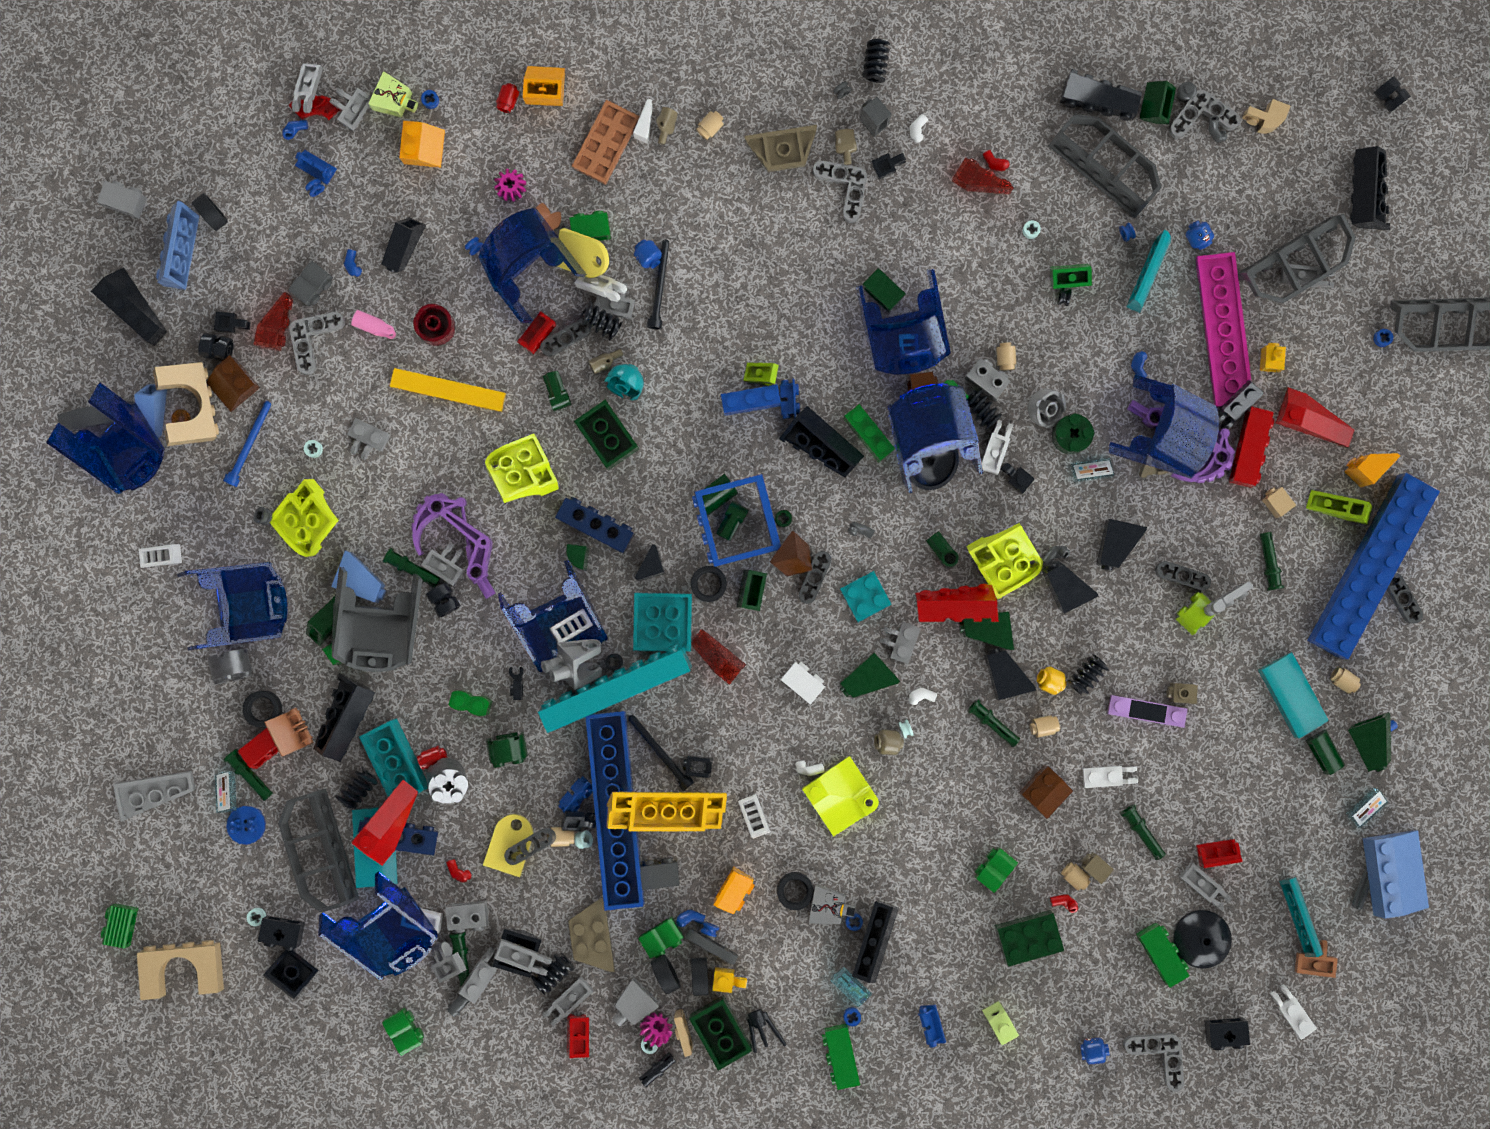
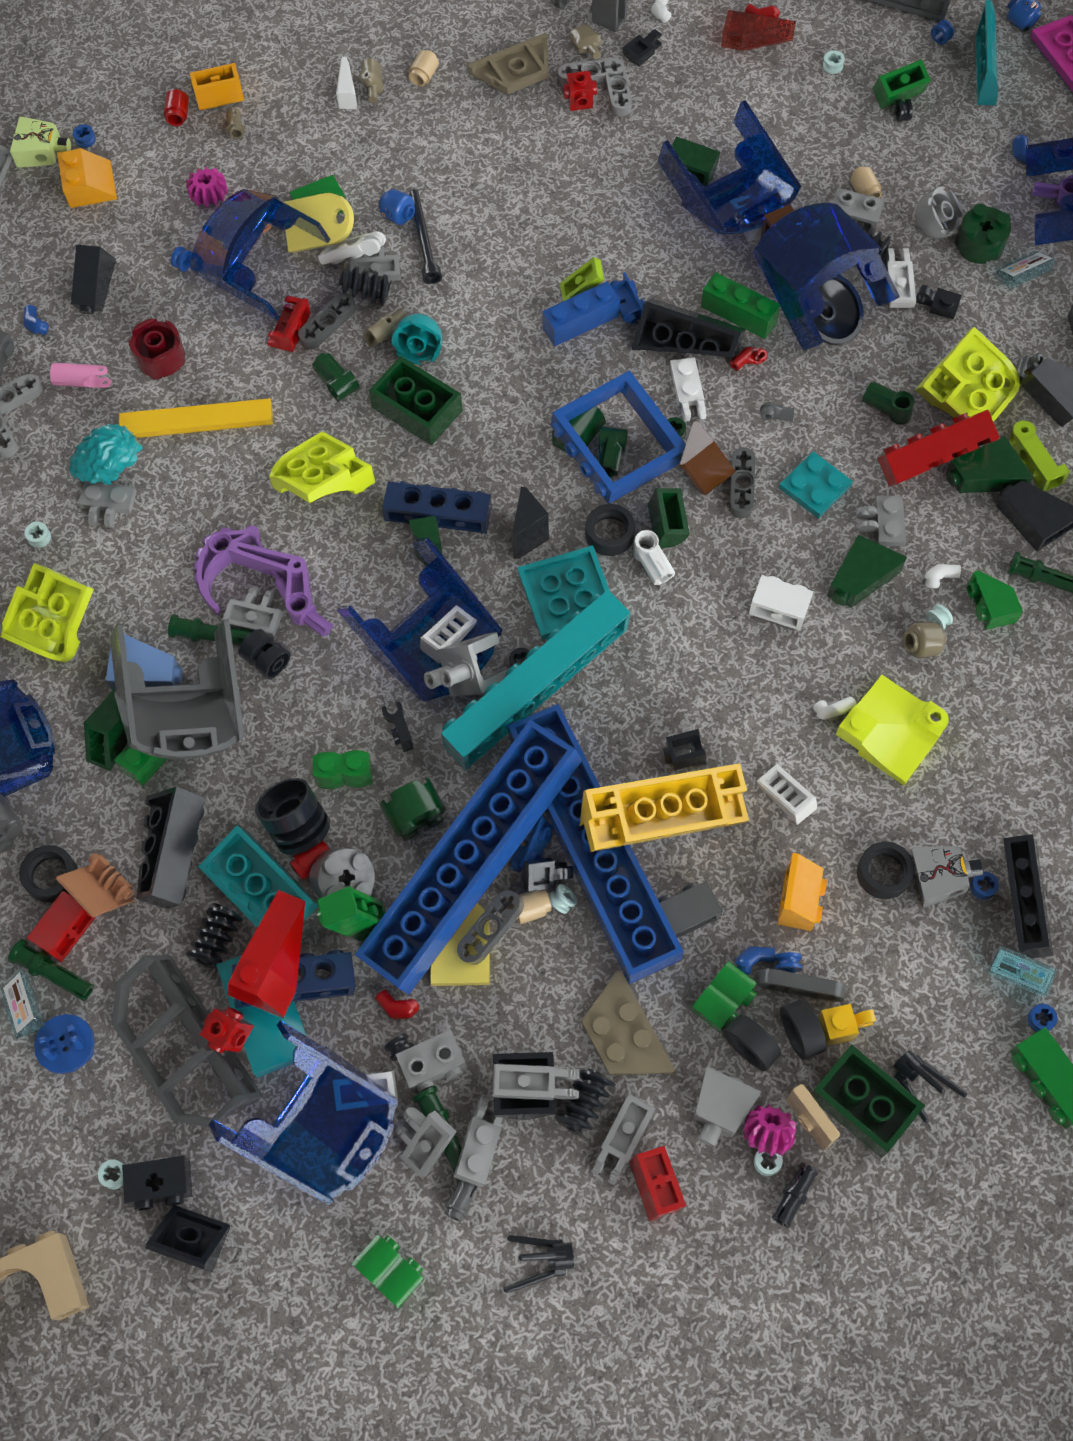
camera: 15 degrees left, 20 degrees down
(345, 859) = (226, 1030): none -> red brick
(373, 406) = (104, 454): none -> teal hair
(426, 730) = (292, 816): none -> black wheel
(444, 813) = (350, 912): none -> green brick
(450, 899) = (398, 1045): none -> black bush
(504, 1059) = (558, 1256): none -> black plant
(530, 799) = (469, 857): none -> blue brick
(548, 129) = (235, 128): none -> dark tan pin
(605, 142) = (307, 117): nougat plate -> none
(684, 781) = (622, 750): black piece -> none
(718, 657) = (658, 607): clear red slope -> none
(729, 619) = (652, 559): none -> white piece
(806, 485) = (688, 387): none -> white hinge
(822, 199) = (580, 90): none -> red brick
(860, 475) = (748, 355): none -> red arm
(948, 731) = (994, 600): none -> green slope
(1026, 629) = (1036, 457): none -> lime leg

